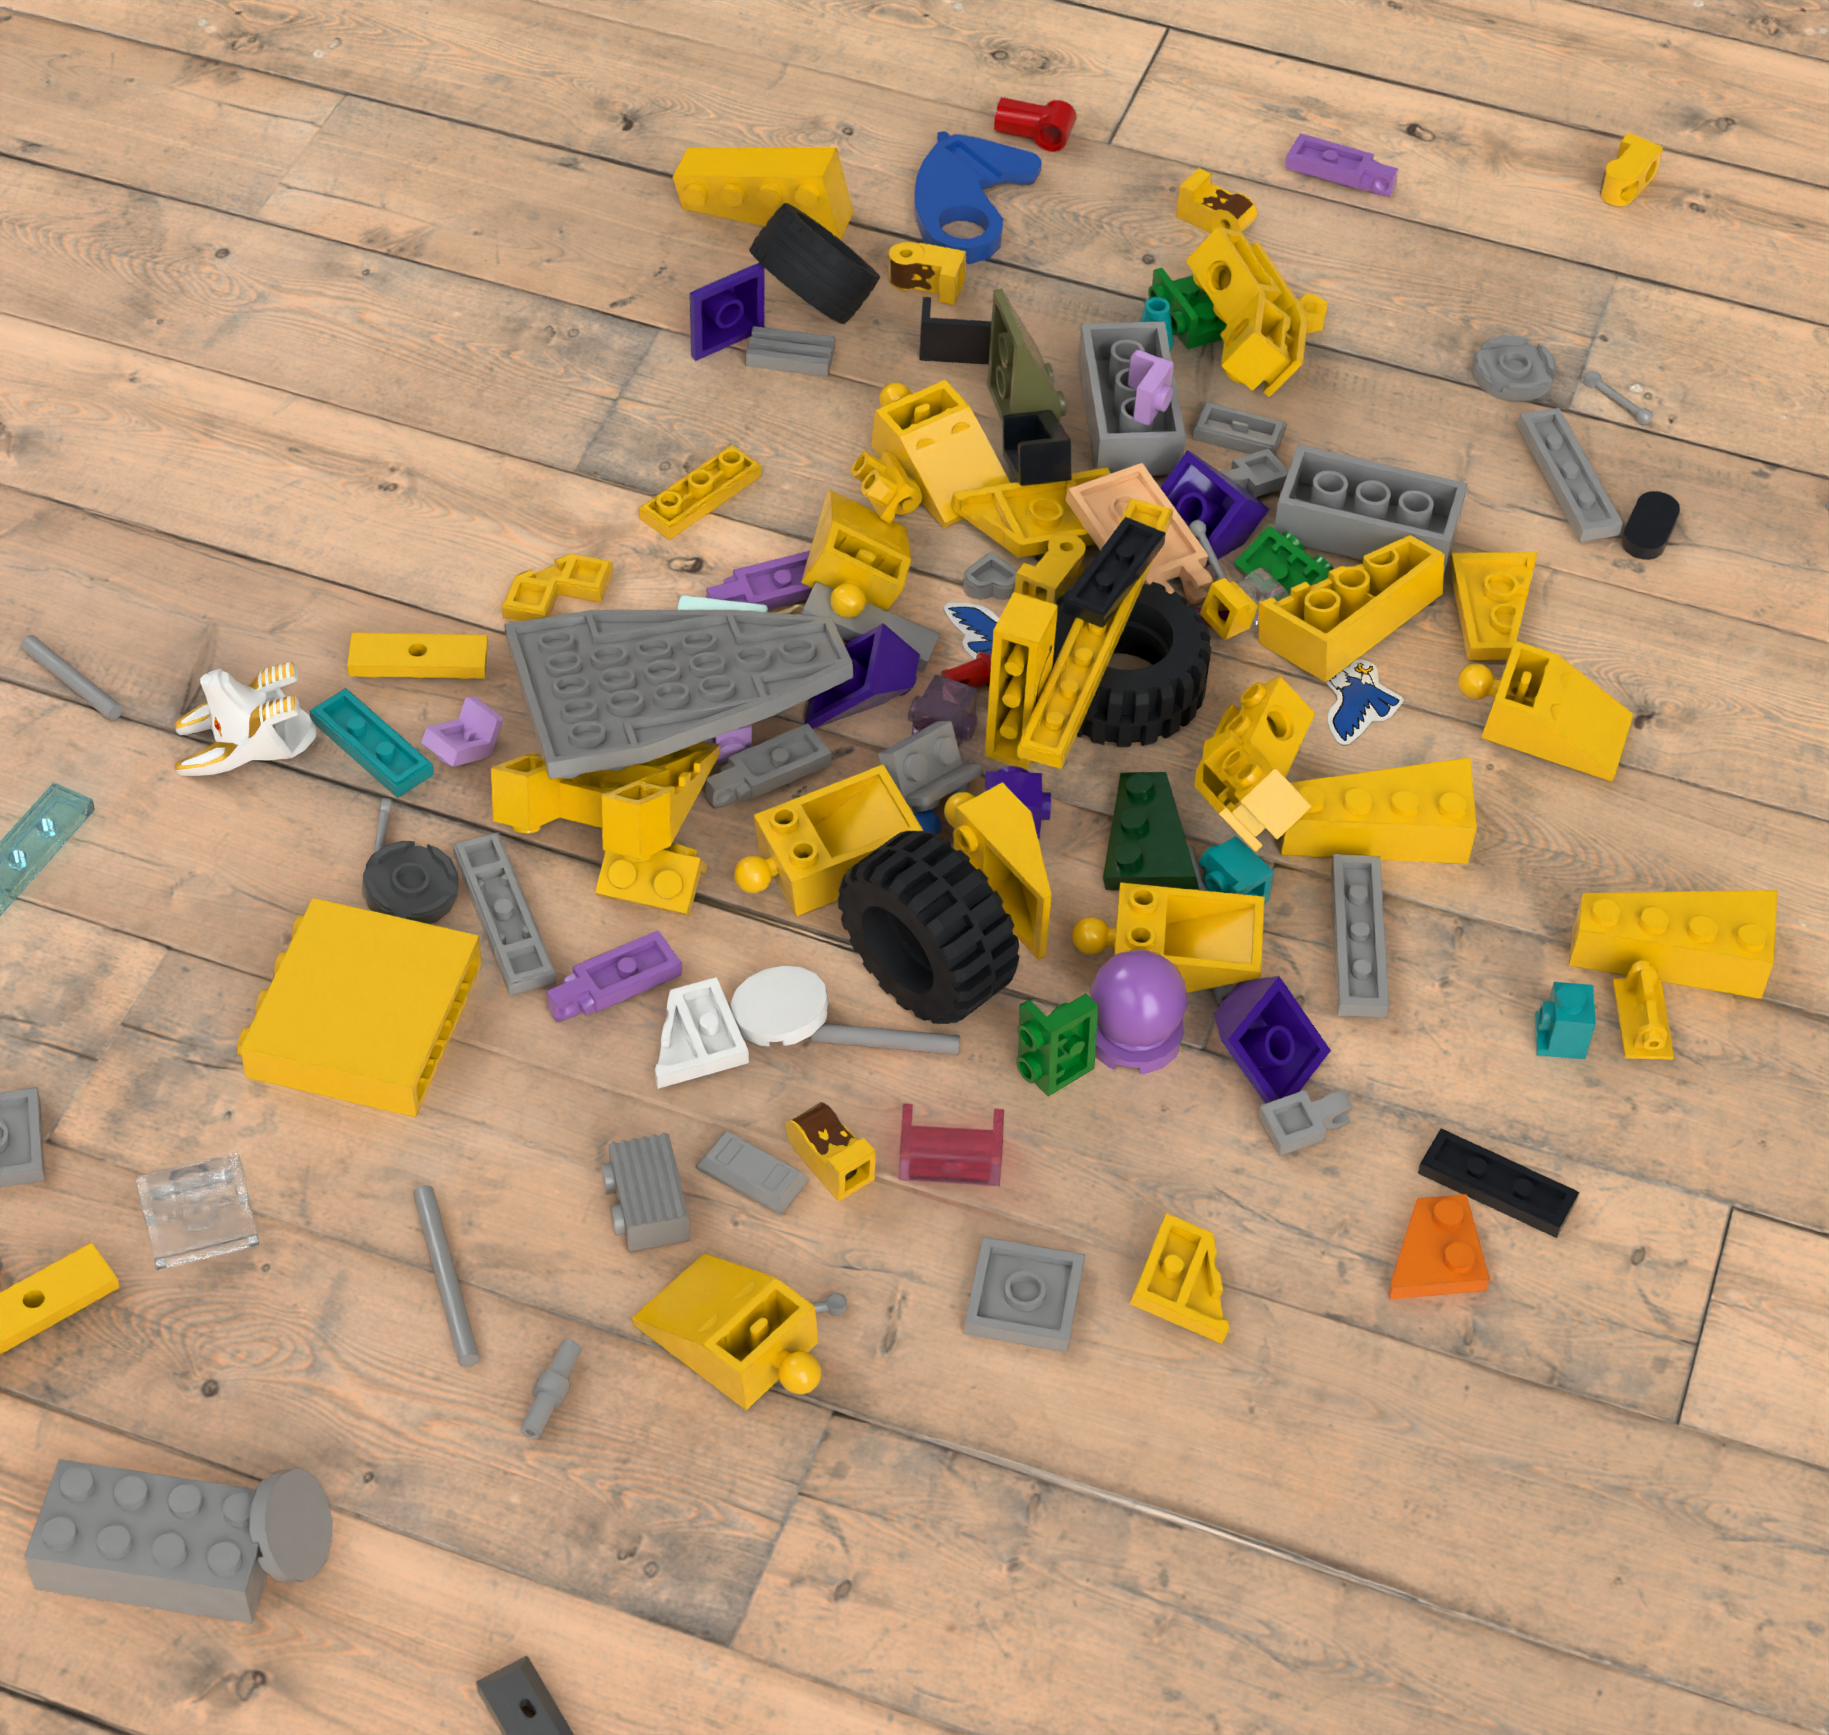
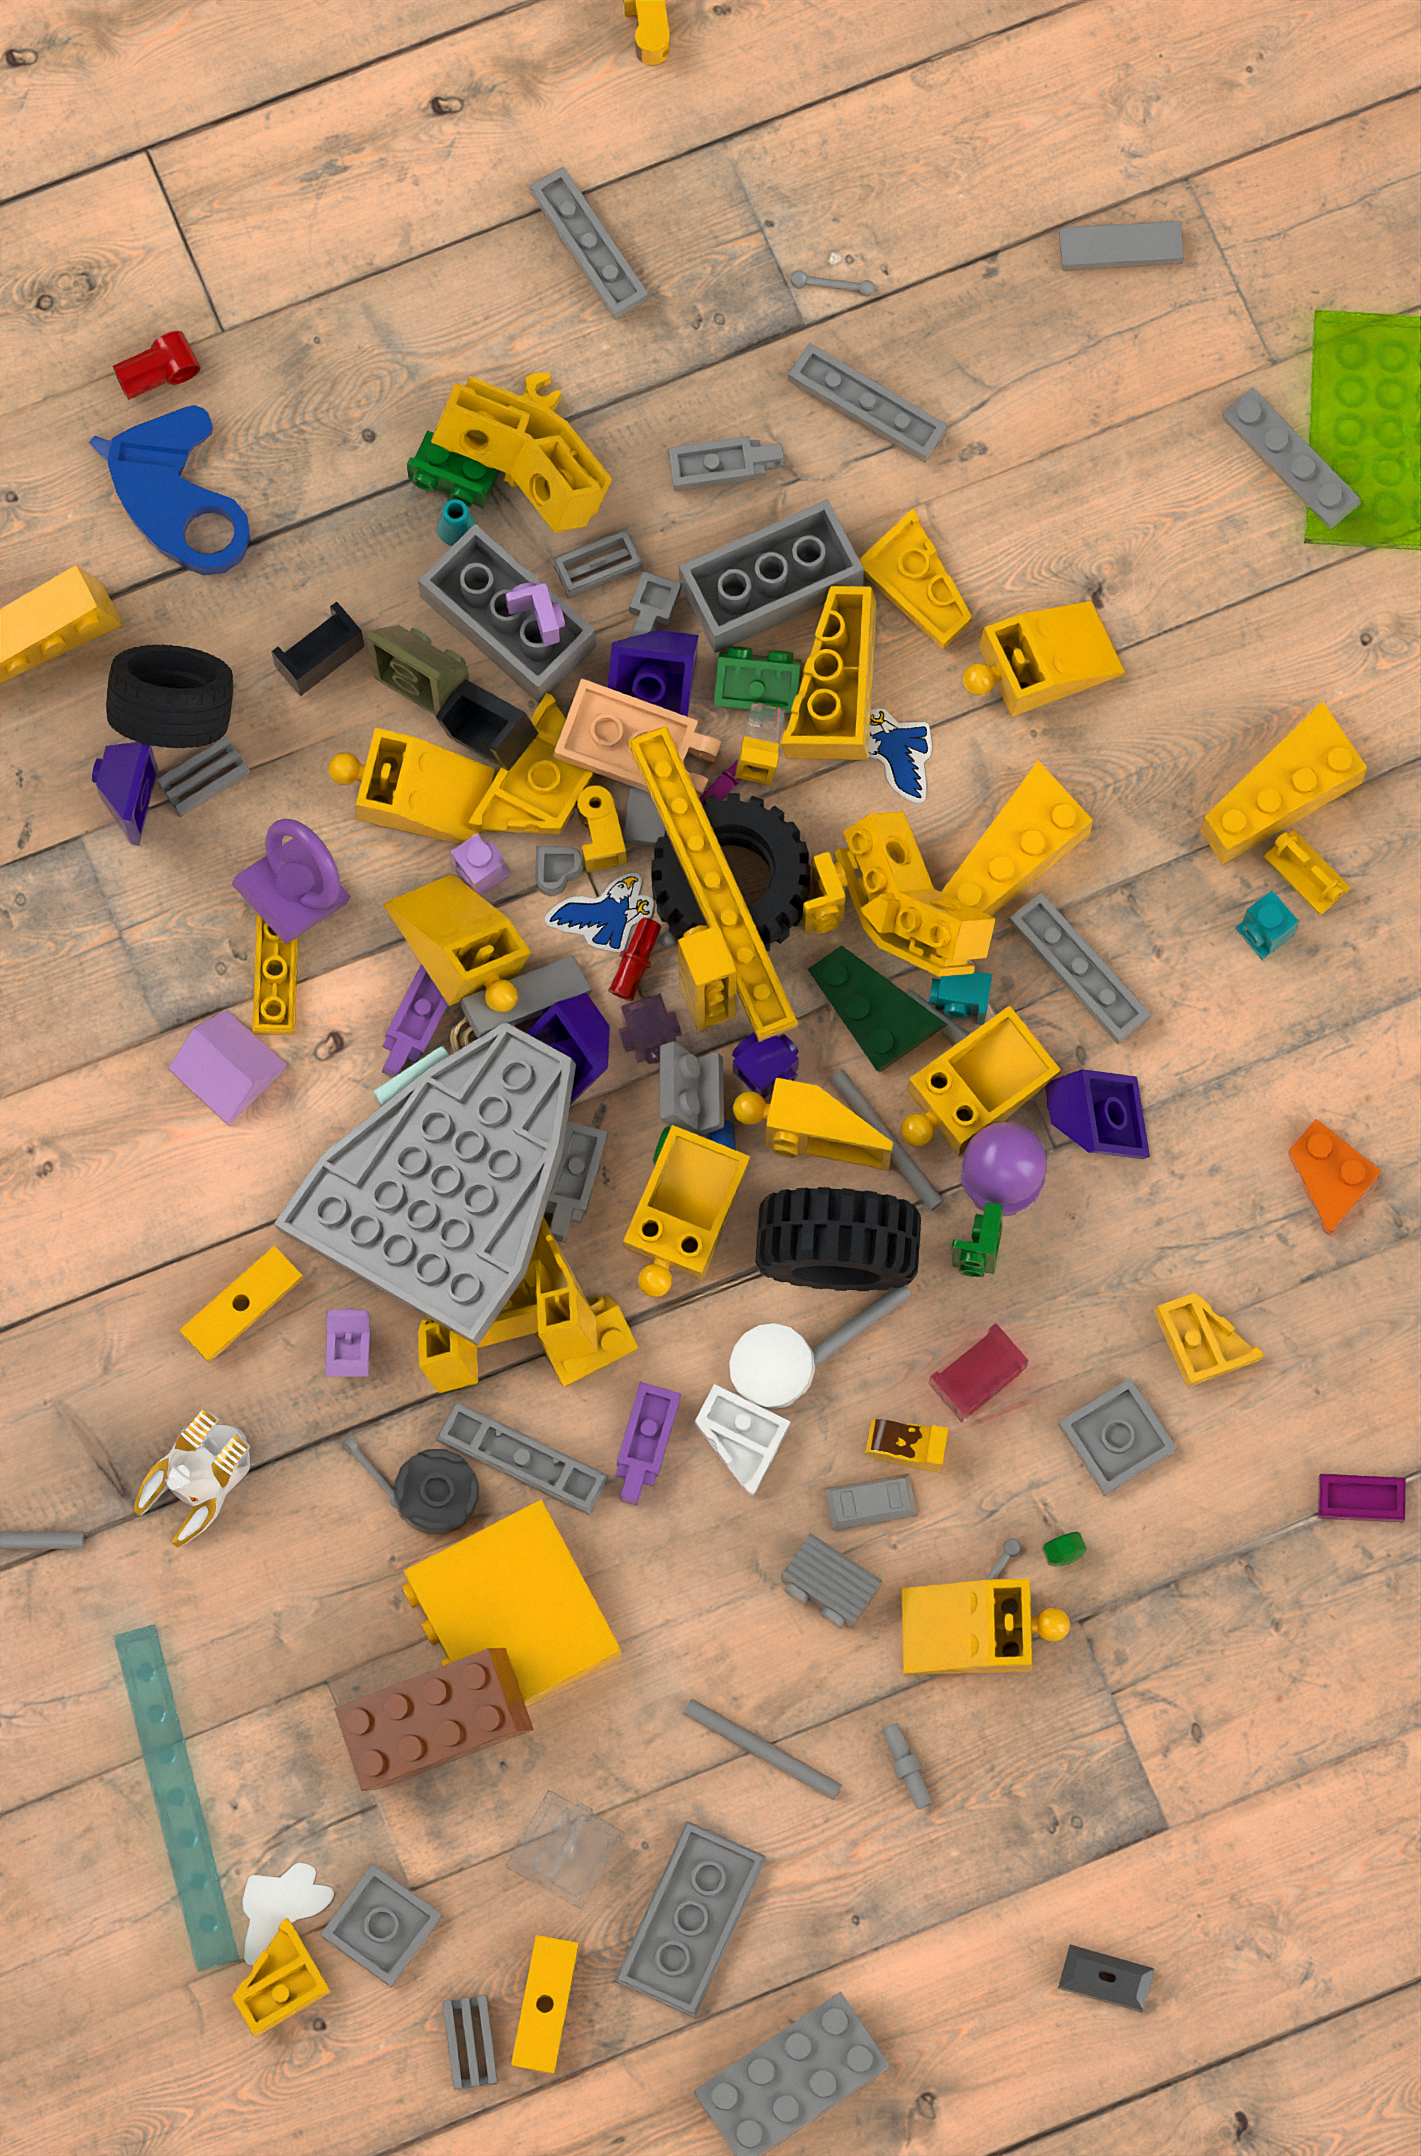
camera: 40 degrees left, 25 degrees up
(204, 1007) = (433, 1719): none -> dark orange brick
(231, 1351) = (690, 1919): none -> light grey tile
(291, 1525) = (866, 1999): light grey tile -> none
(371, 742) = (282, 1402): teal tile -> none
(573, 576) = (264, 1135): yellow tile -> none
(594, 513) = (226, 1065): none -> lavender slope
(770, 441) = (294, 882): none -> medium lavender tile
(879, 1333) = (1064, 1549): none -> green tile
(886, 485) = (418, 857): yellow hips -> none
(928, 269) = (228, 602): yellow leg -> none
(931, 527) = (479, 864): none -> lavender brick
(1058, 933) = (899, 1155): none -> light grey bar
(1113, 572) = (685, 826): black tile -> none
(1184, 724) = (829, 908): none -> yellow bracket
(1198, 528) = (728, 732): light grey hinge -> none
(1204, 1524) = (1361, 1498): none -> magenta tile
(1212, 206) = (380, 342): yellow leg -> none
(1298, 1122) = (1170, 1156): light grey plate -> none
(1341, 165) = (427, 208): medium lavender hinge -> none
(1409, 434) = (722, 462): none -> light grey hinge
(1443, 255) = (589, 243): none -> light grey plate
(1498, 1182) = (1323, 1088): black tile -> none
(1514, 369) = (735, 319): light grey tile -> none
(1650, 525) = (960, 401): black tile -> none

